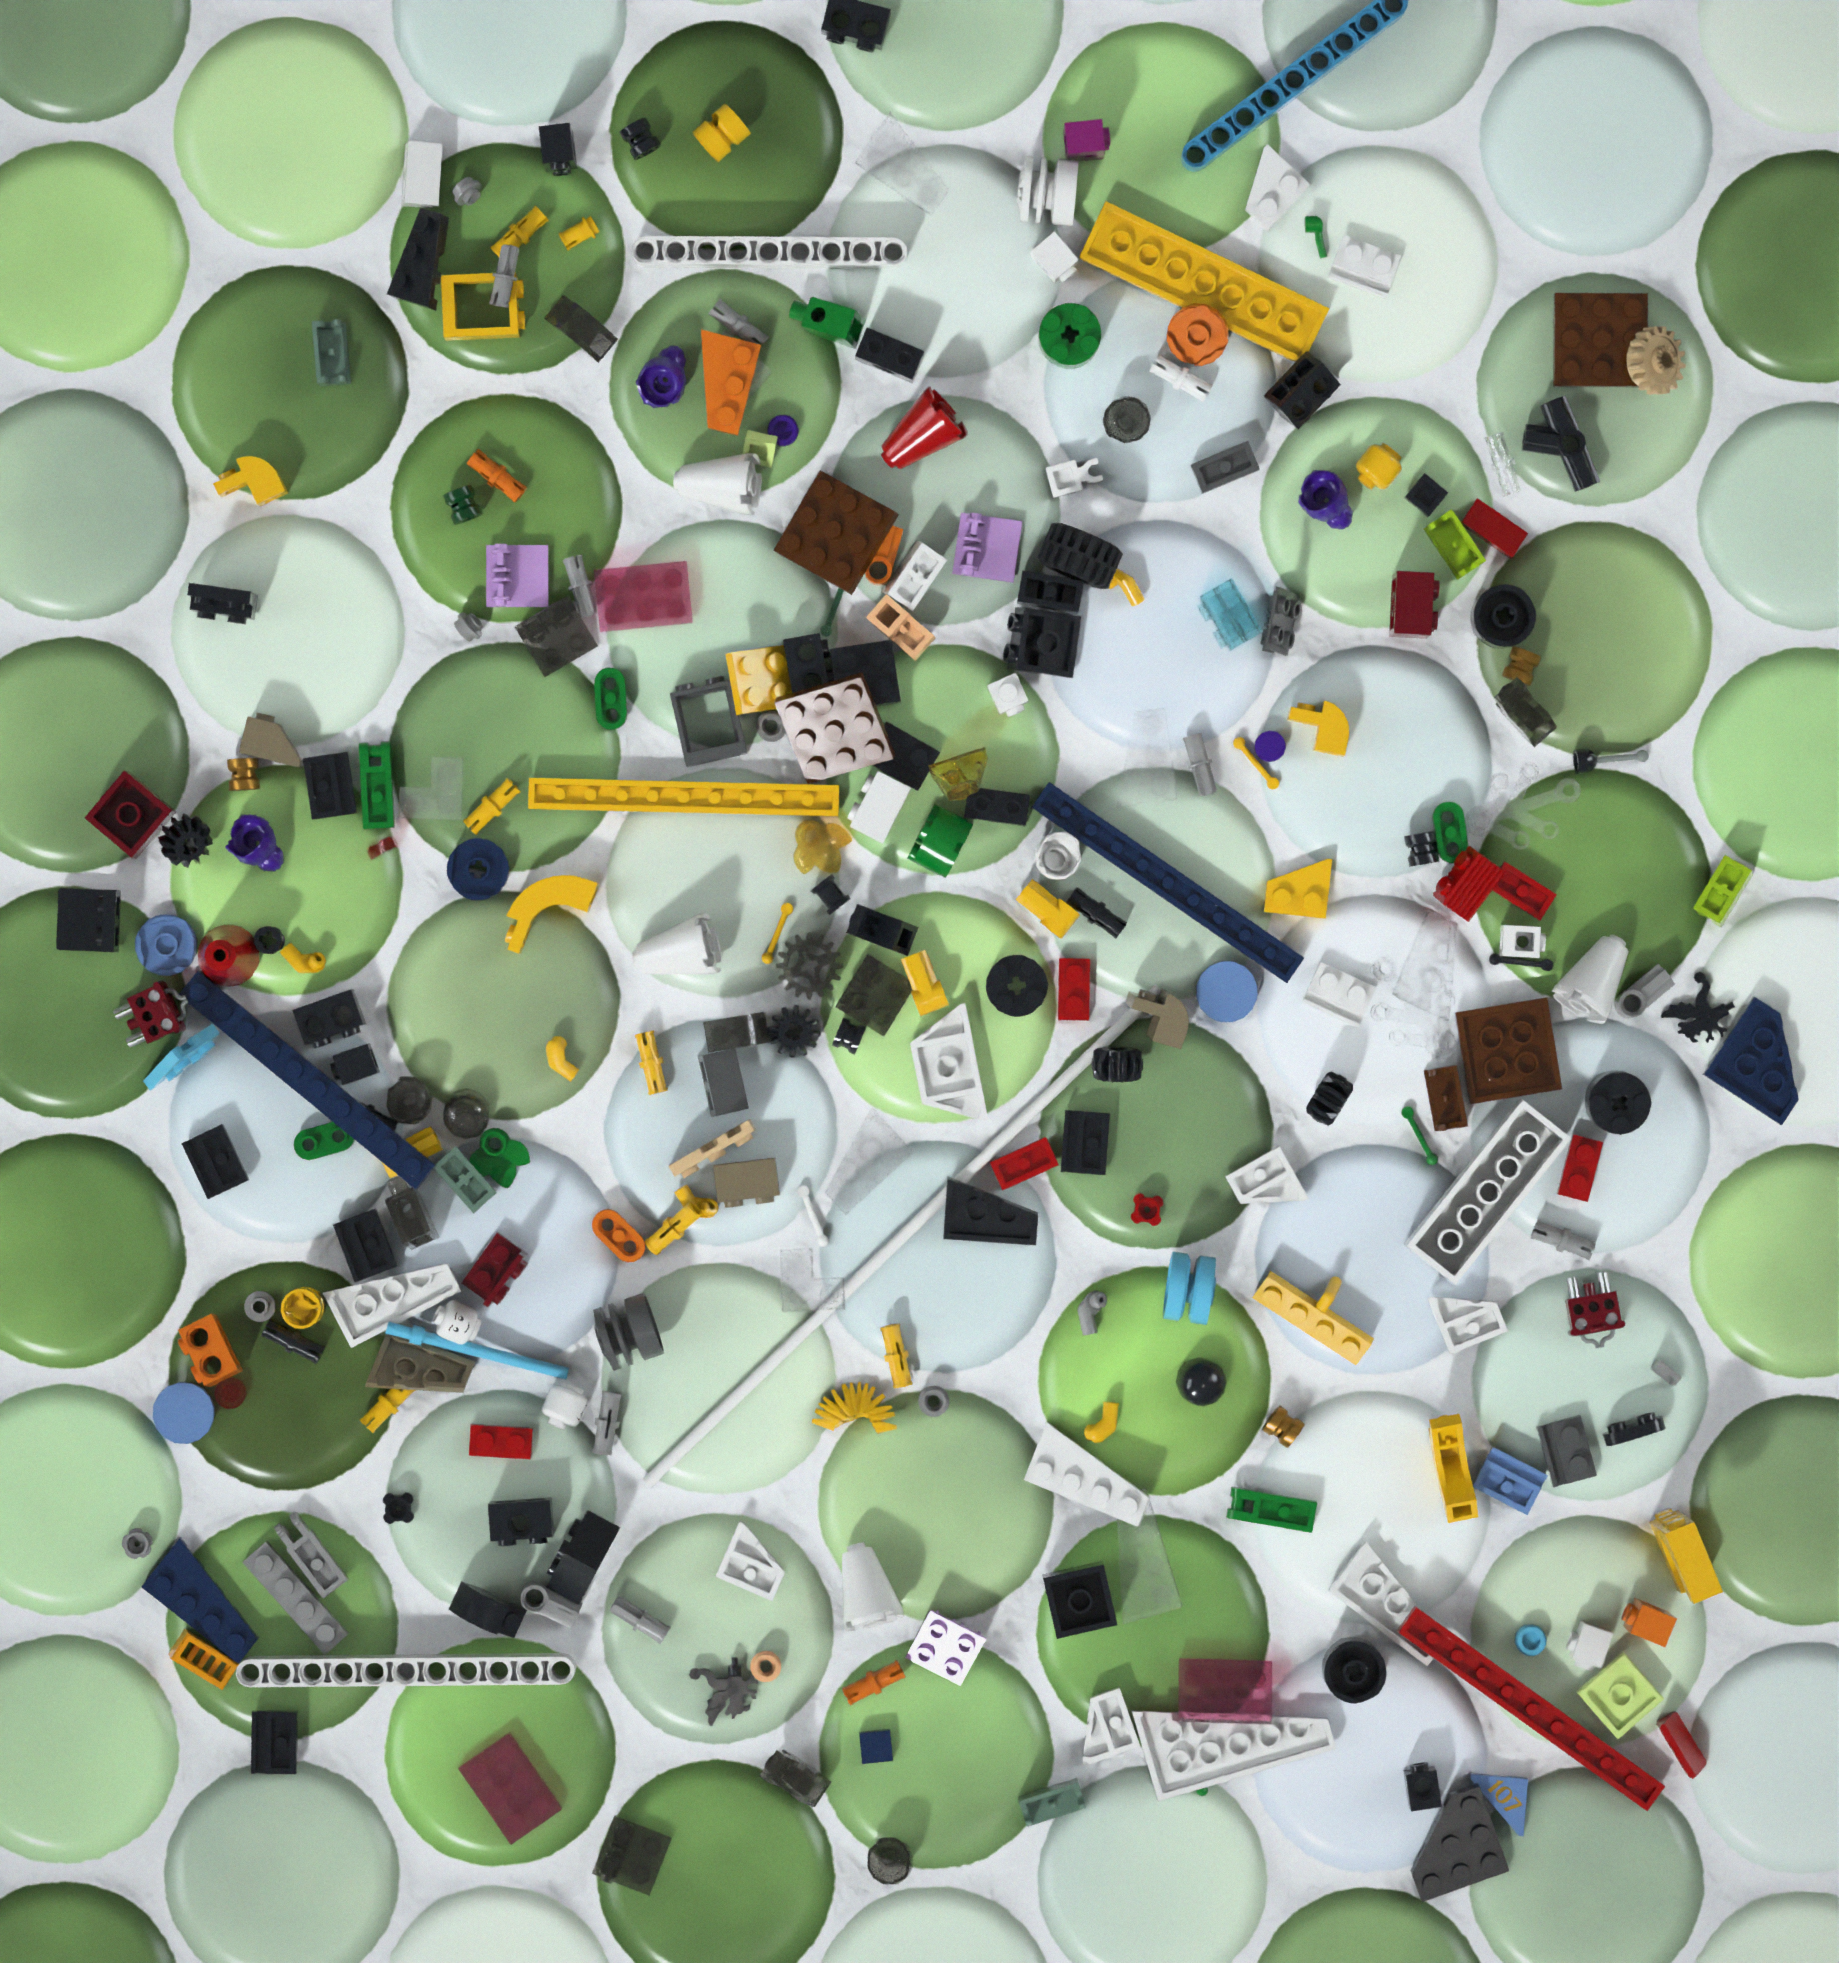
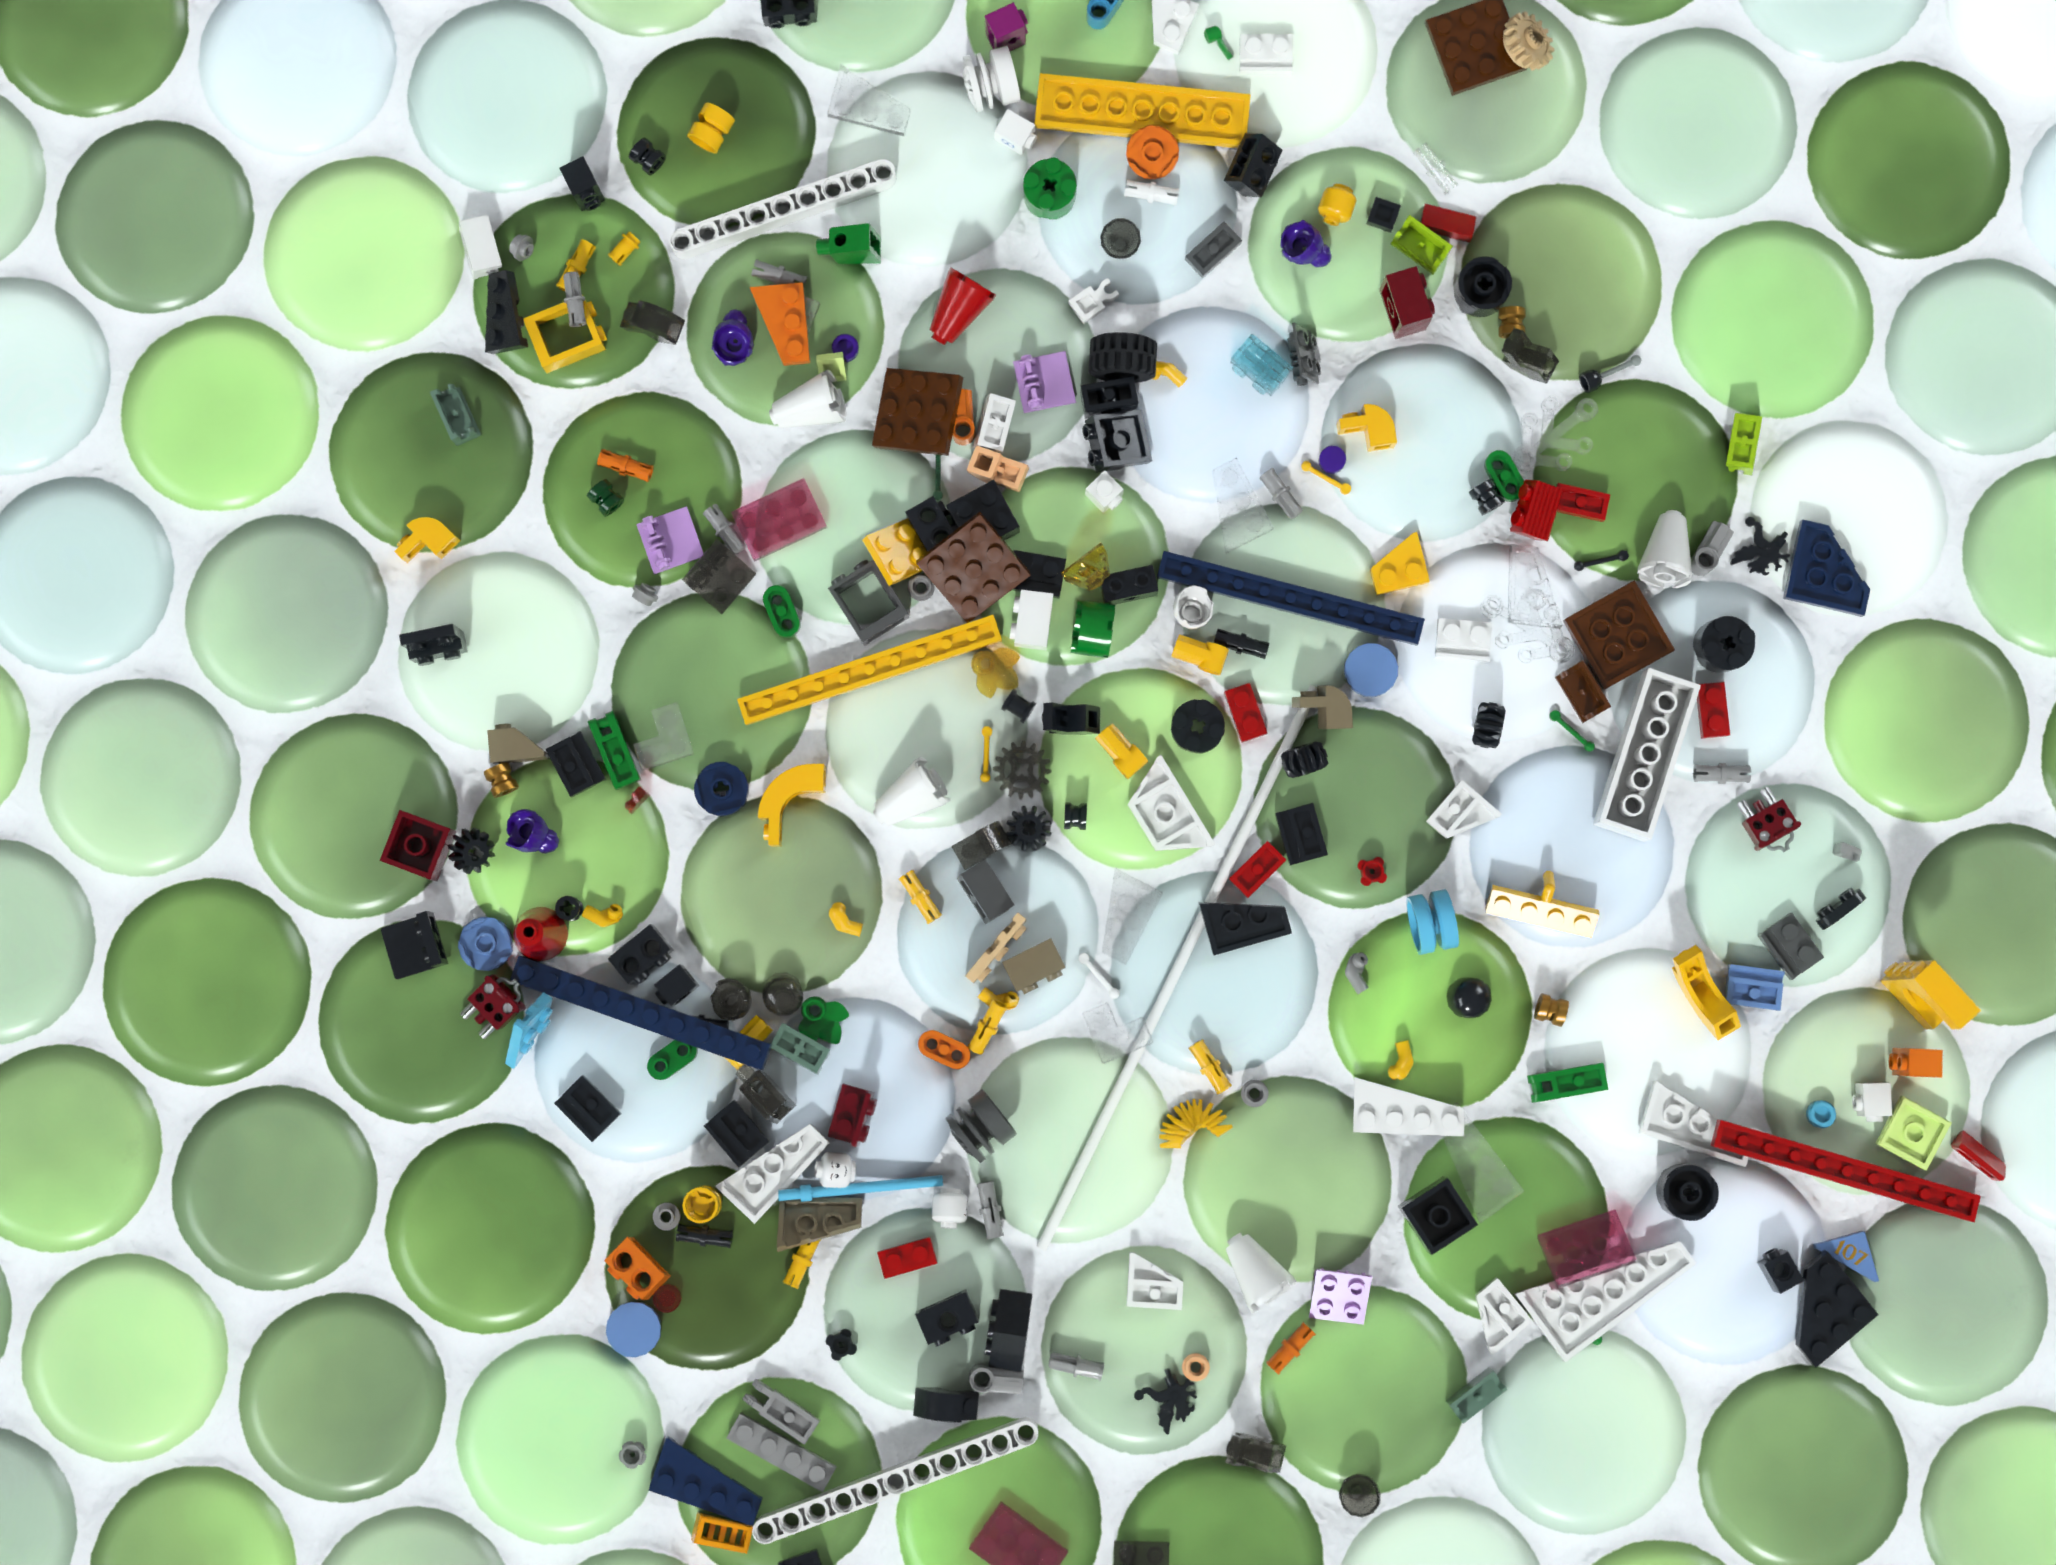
camera: 20 degrees left, 5 degrees down
(491, 806) = (714, 733): yellow pin -> none
(875, 995) = (1084, 775): clear smoke hinge -> none
(876, 1746) = (1312, 1401): dark blue tile -> none
(889, 355) = (910, 255): black brick -> none
(1466, 1321) = (1668, 869): white wing -> none
(1509, 946) = (1606, 538): white brick -> none
(1549, 441) = (1467, 136): black piece -> none

